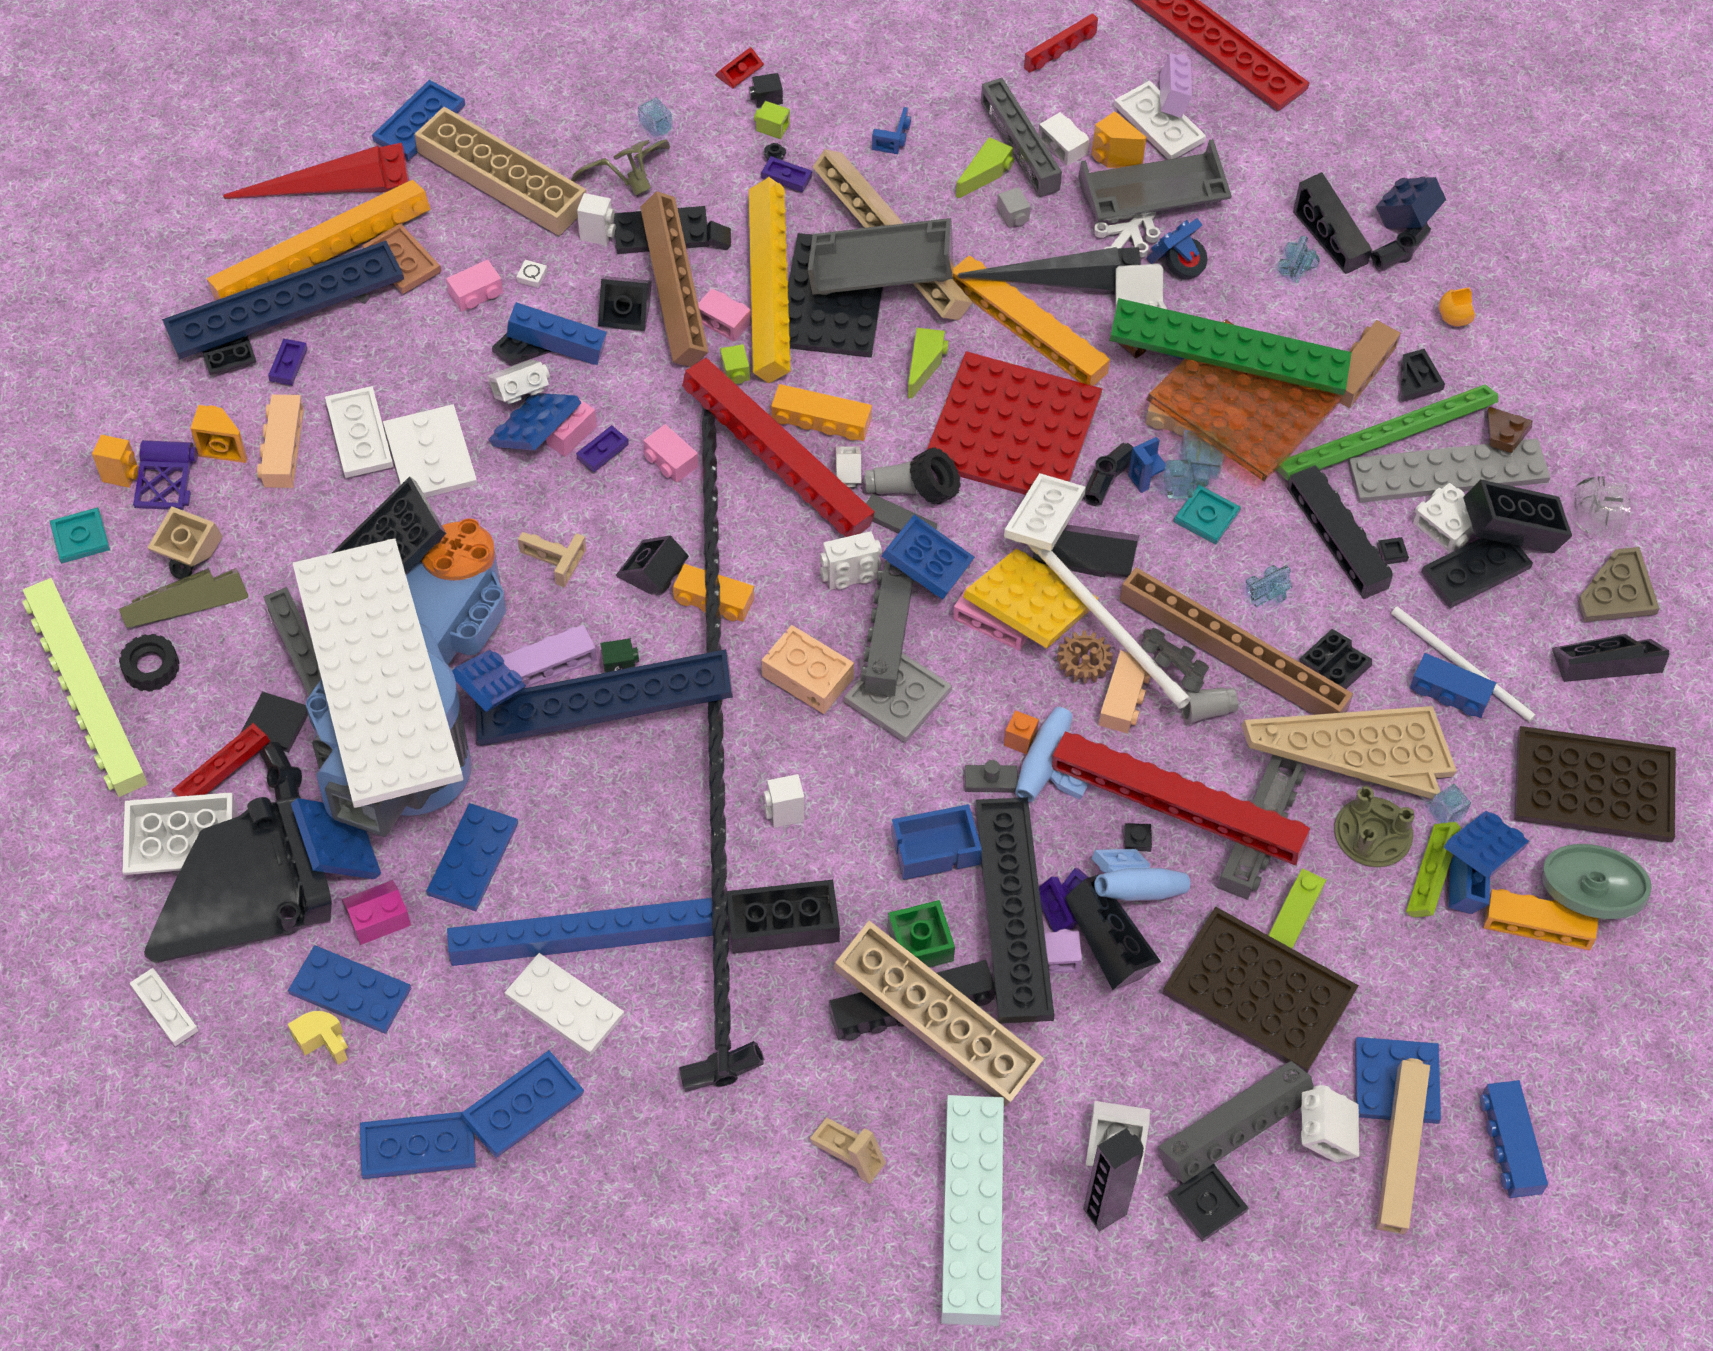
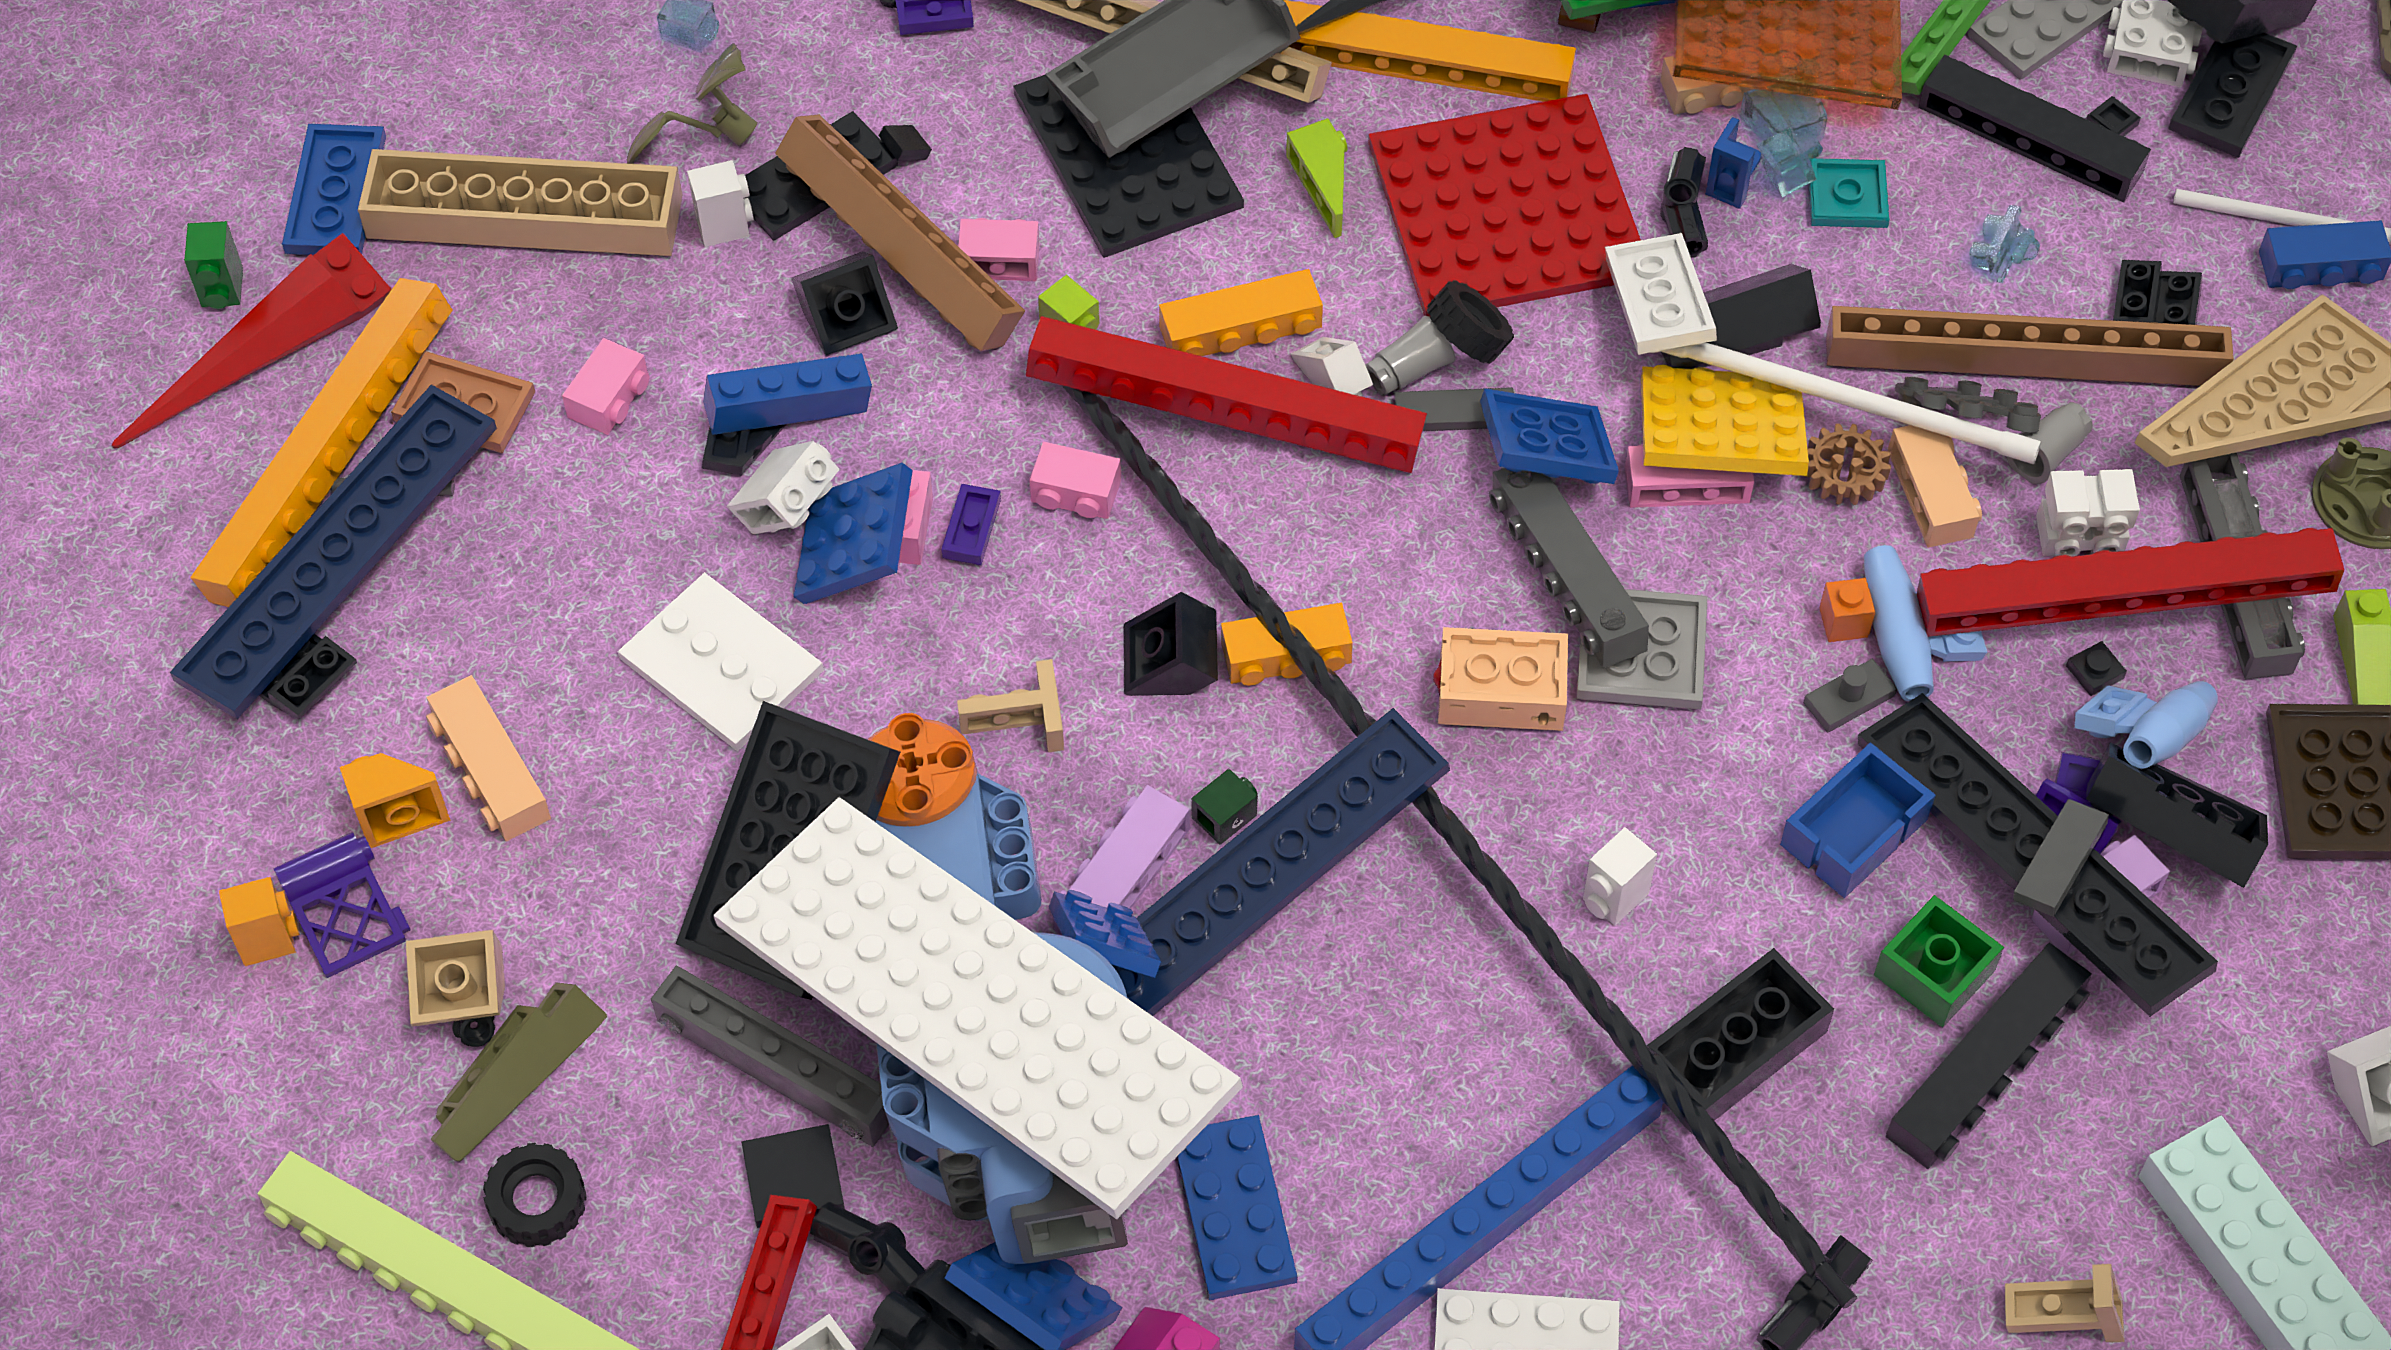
camera: 30 degrees left, 0 degrees up
(79, 535) = (273, 1065): teal tile -> none
(287, 362) = (405, 638): dark purple plate -> none
(329, 128) = (213, 264): none -> green brick
(359, 432) = (593, 685): white plate -> none
(532, 273) = (673, 329): white tile -> none
(769, 281) = (1031, 168): yellow brick -> none
(850, 560) = (1447, 497): white brick -> none
(937, 1013) = (2056, 1049): tan brick -> none
(1019, 917) = (2060, 857): none -> dark grey tile
(1191, 750) = (2087, 512): none -> white brick

